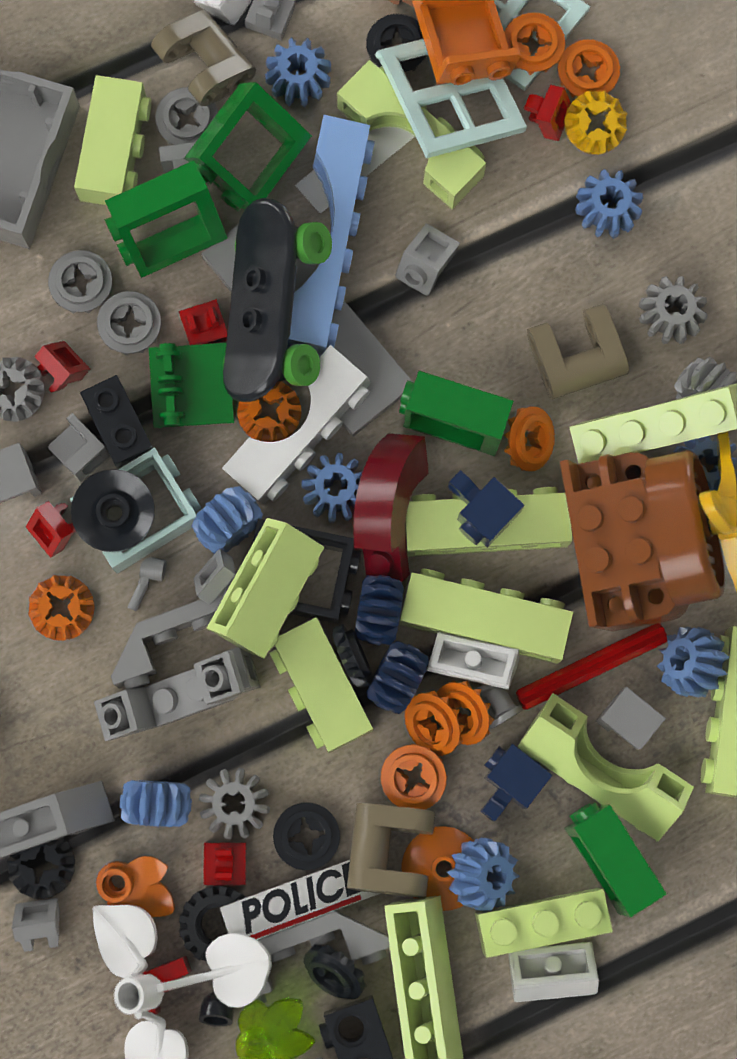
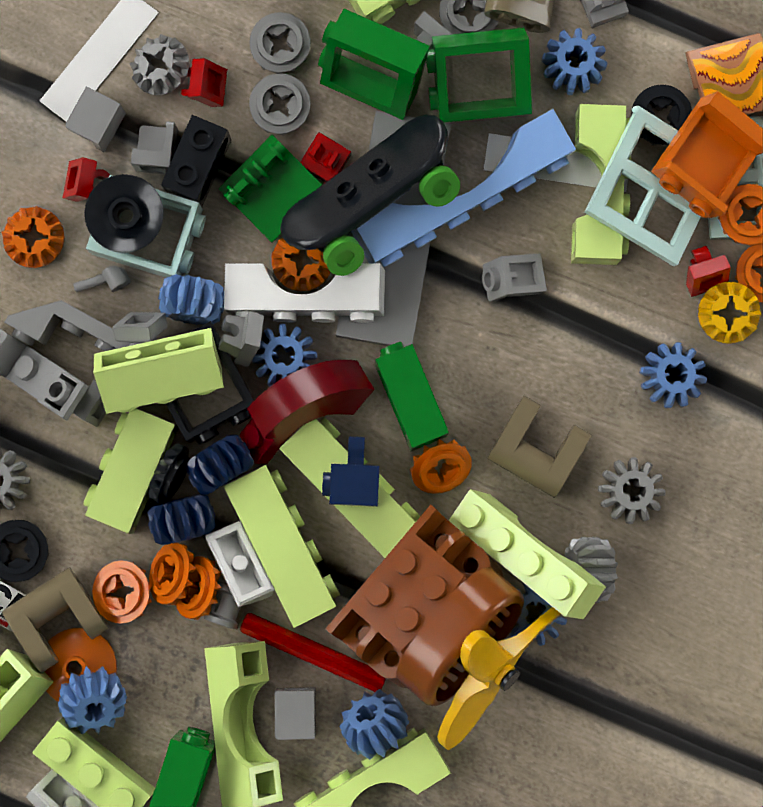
camera: 50 degrees right, 5 degrees up
(295, 501) = (246, 338): none -> light grey tile
(515, 778) = (181, 665): dark blue brick -> none

